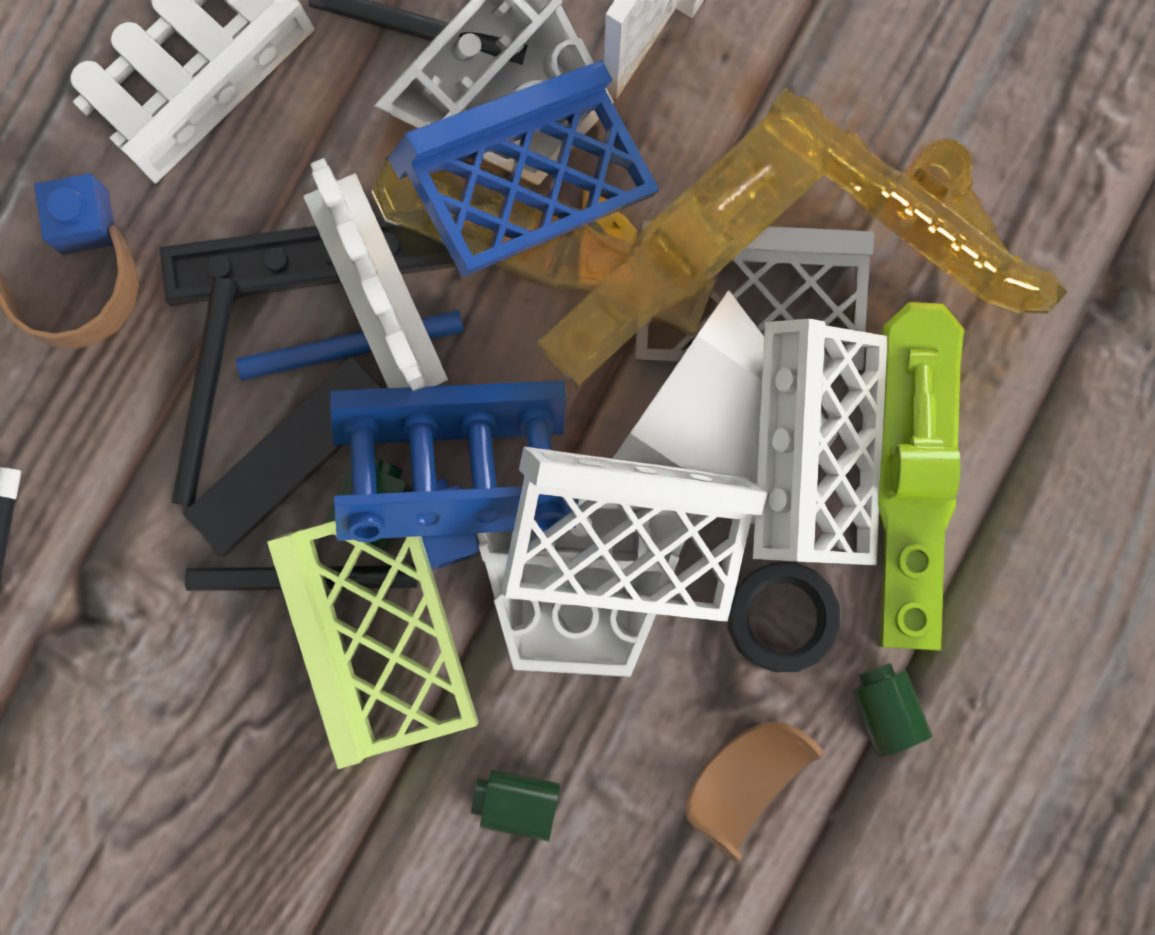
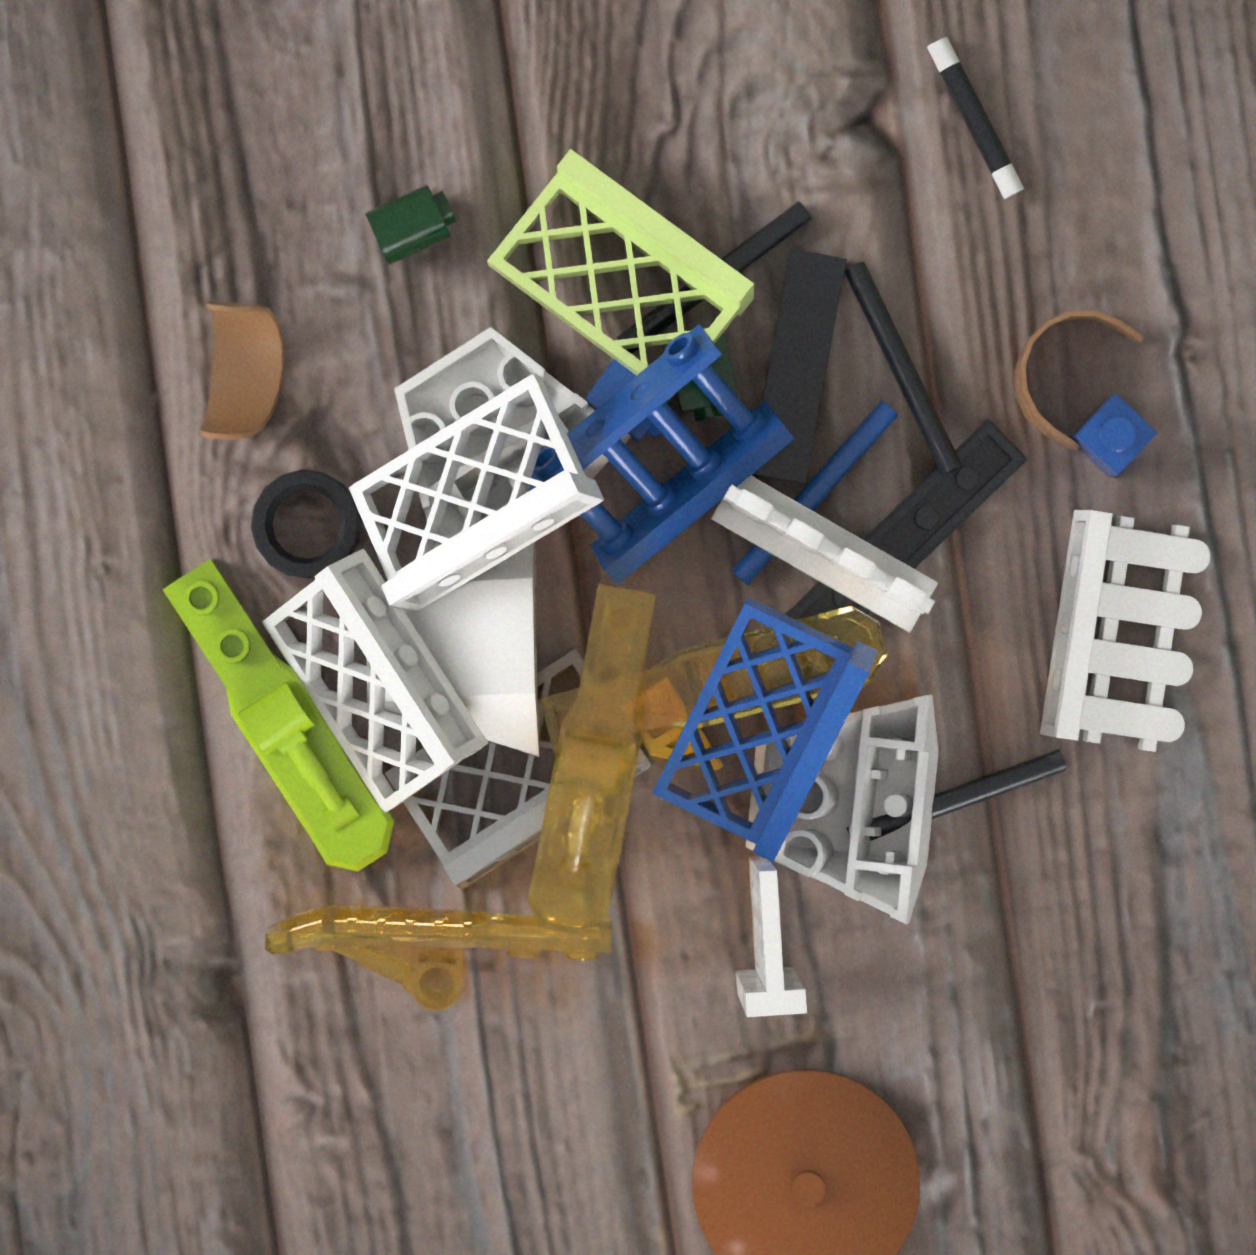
camera: 135 degrees right, 5 degrees up
(890, 710) = (169, 512): dark green brick -> none

